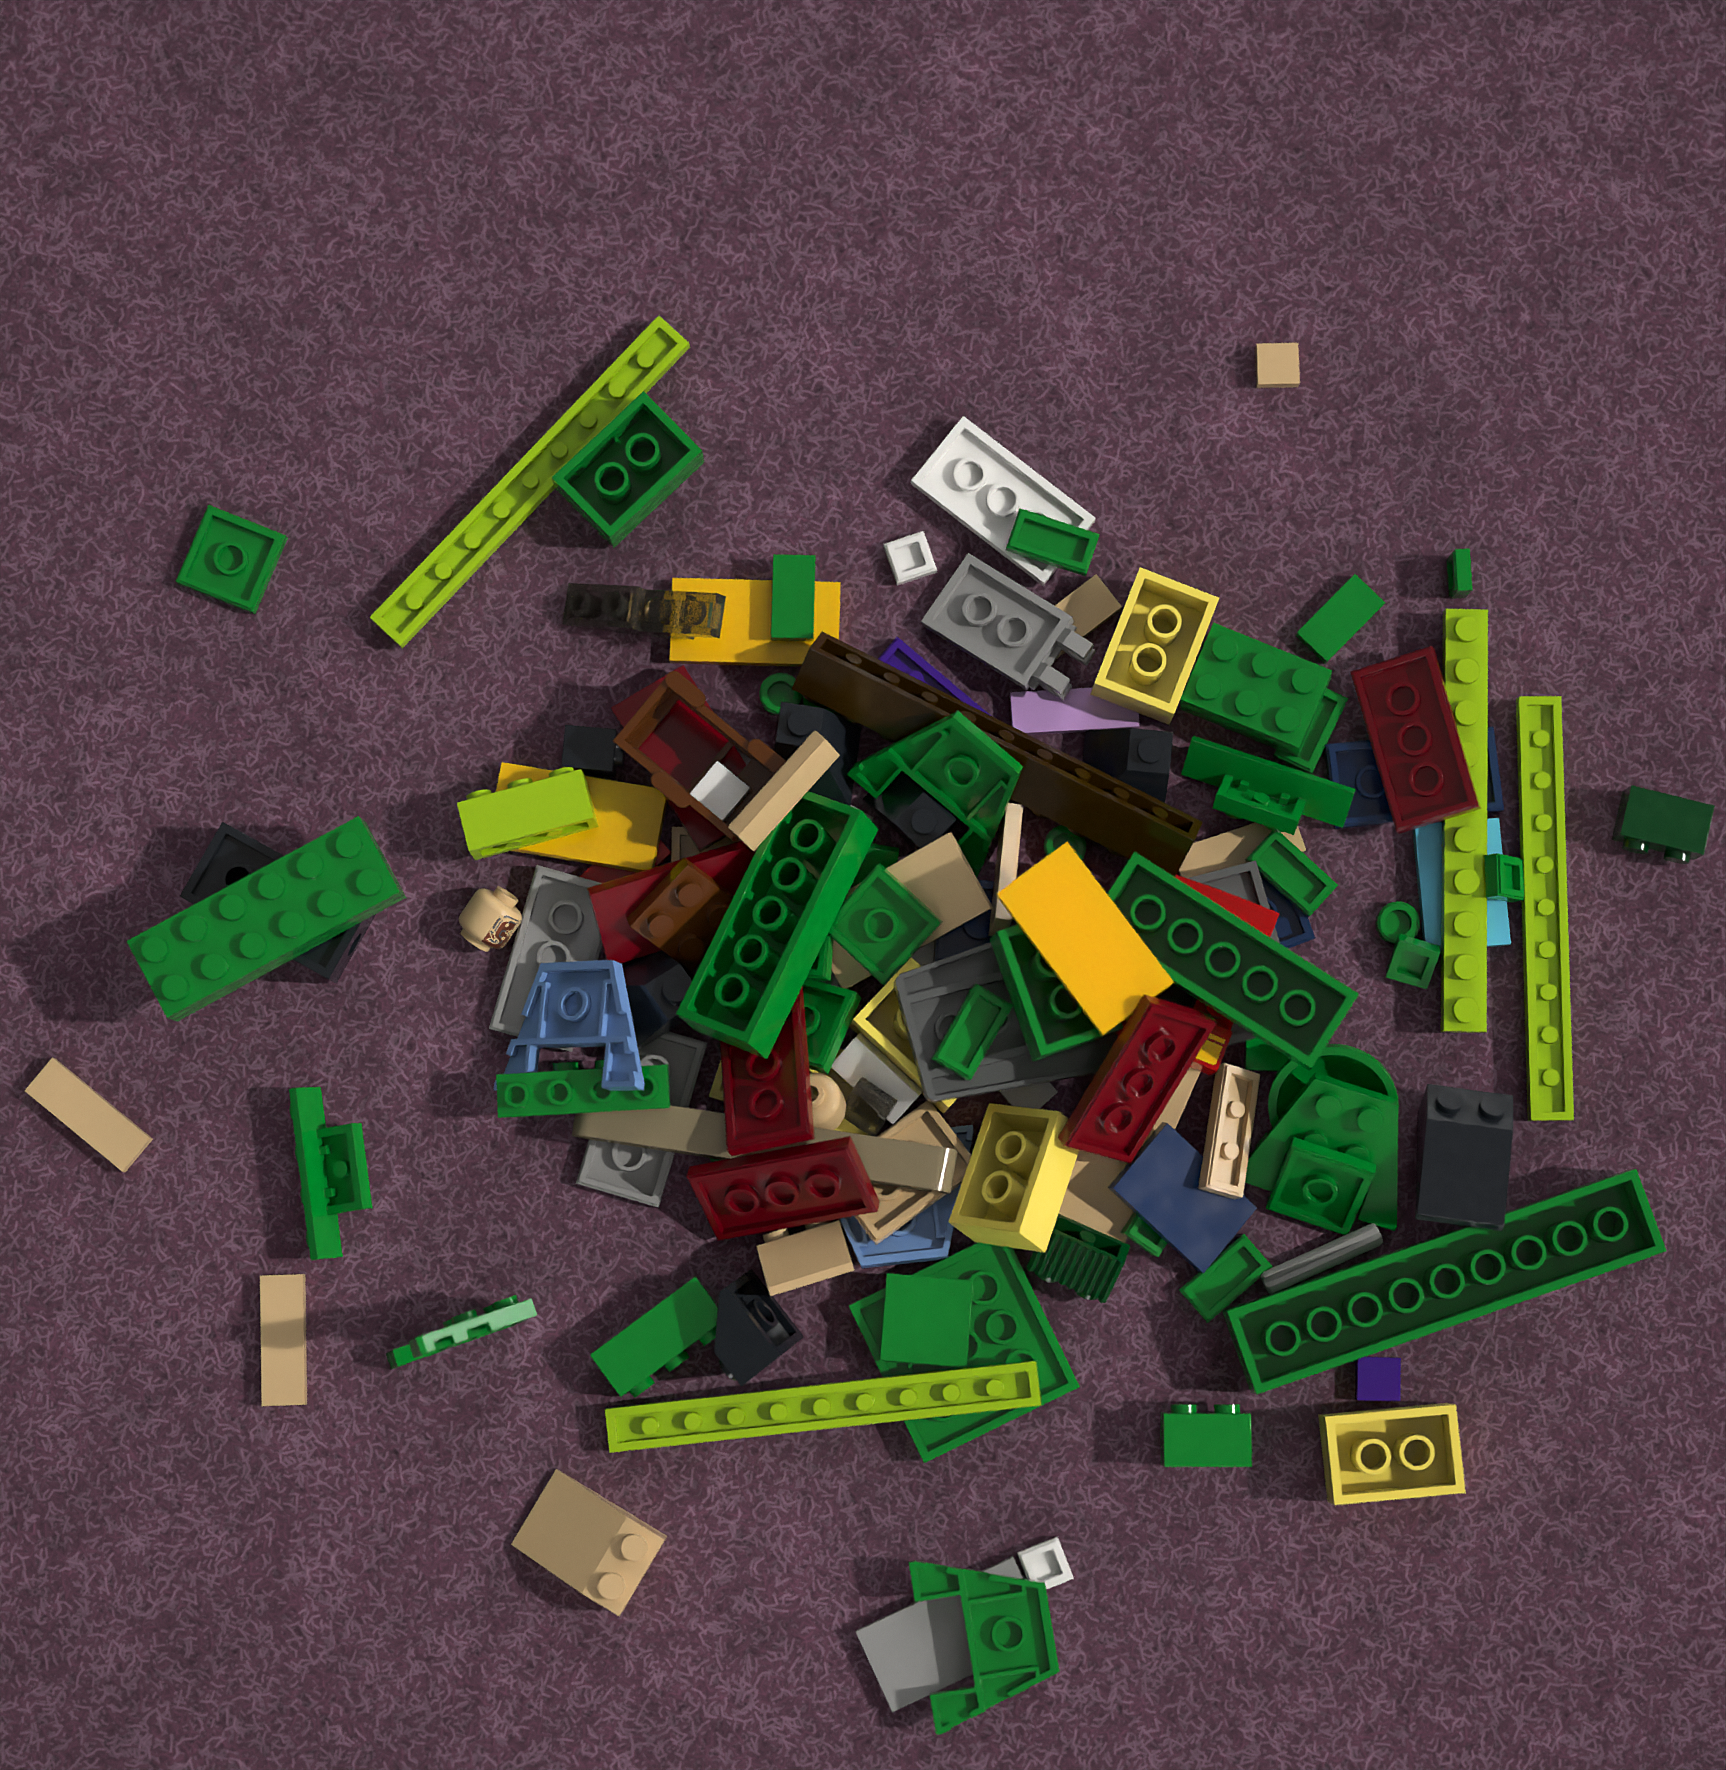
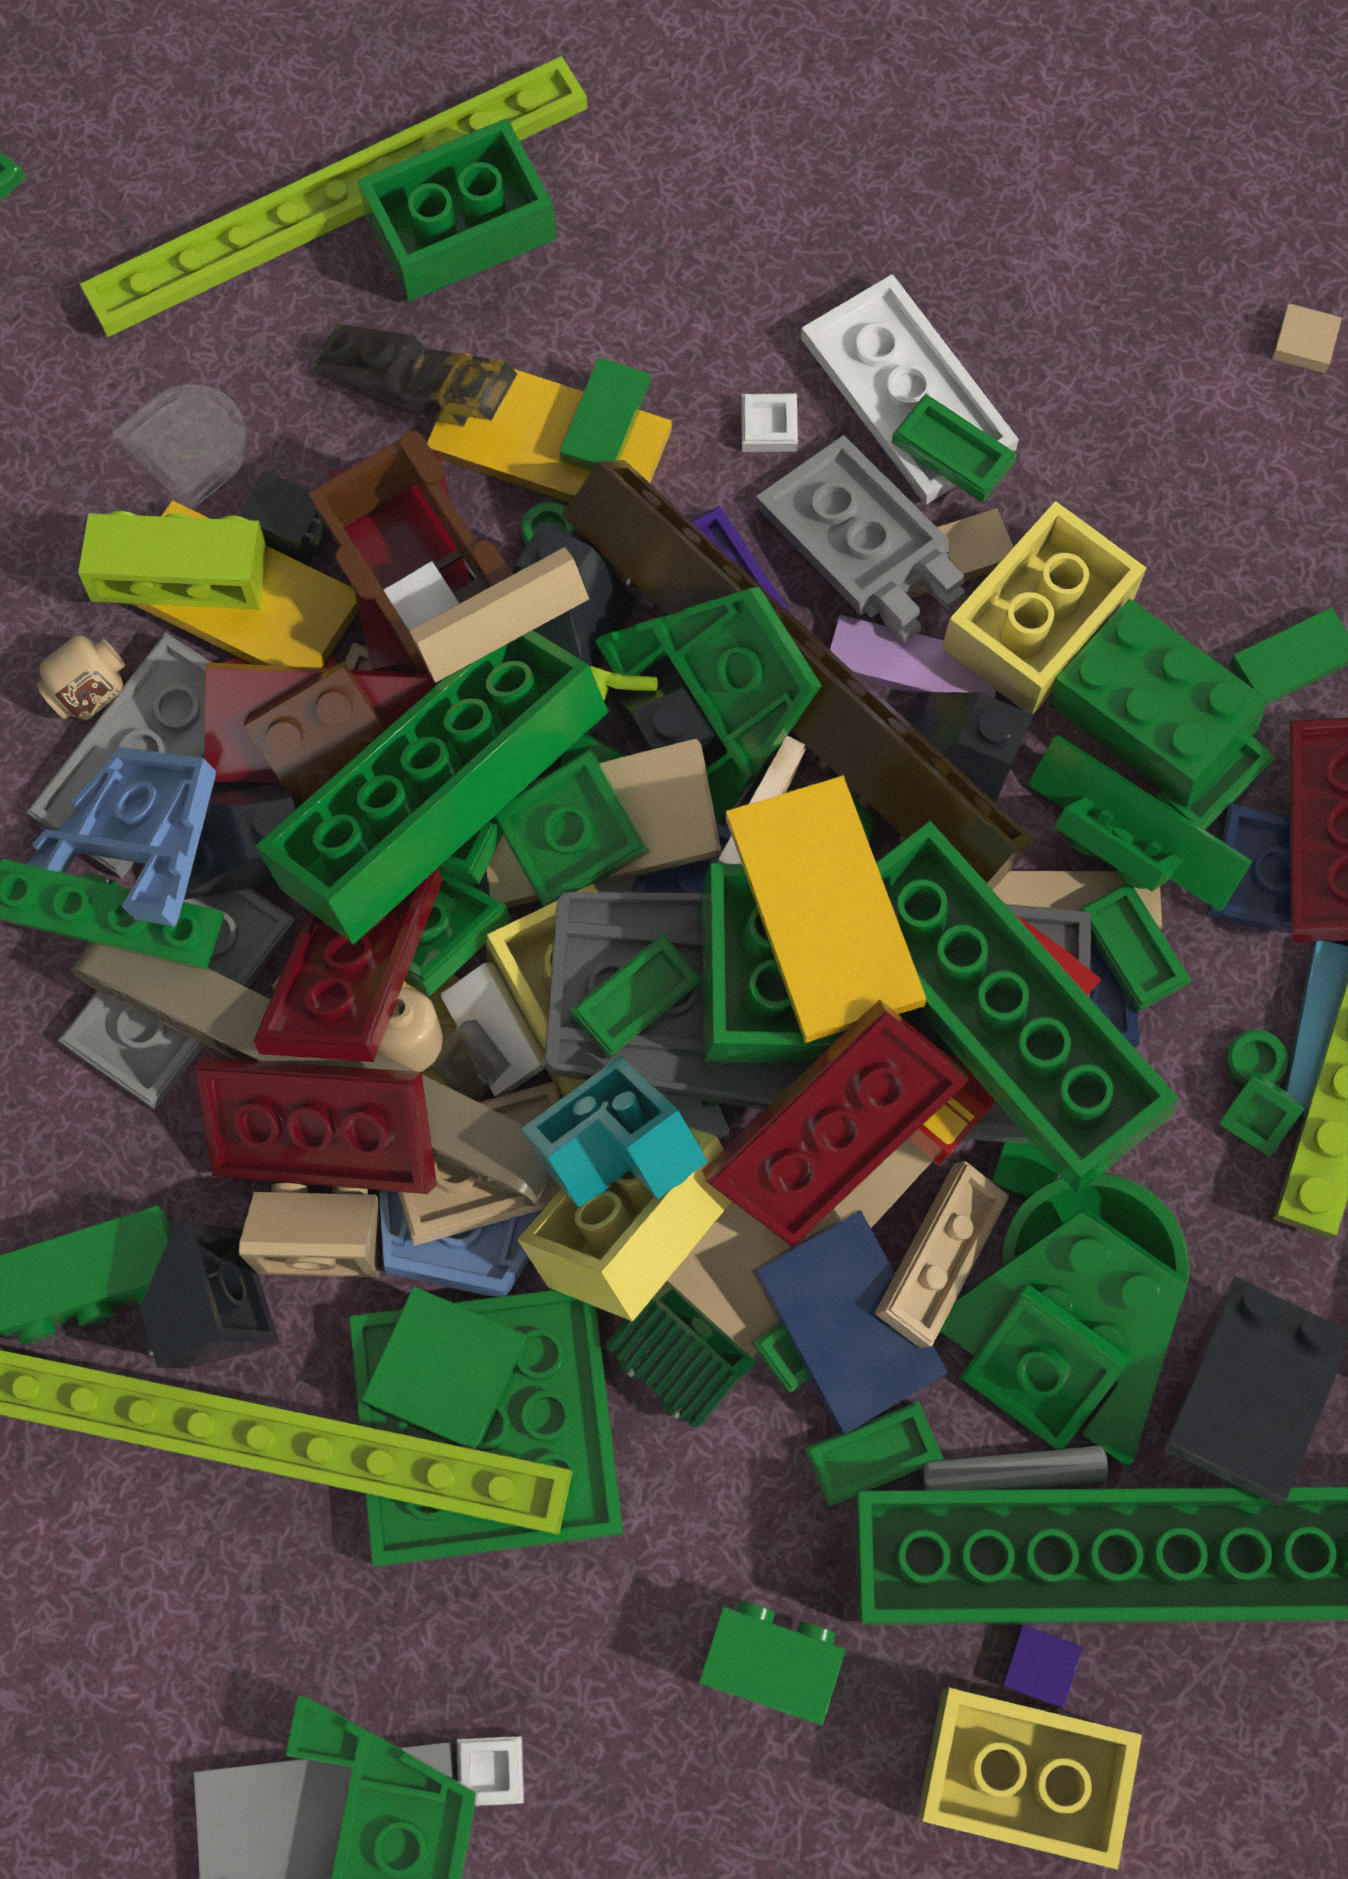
camera: 20 degrees right, 10 degrees down
(492, 711) = (186, 441): none -> clear tile
(862, 800) = (624, 682): none -> lime hand
(988, 1130) = (611, 1128): none -> teal brick

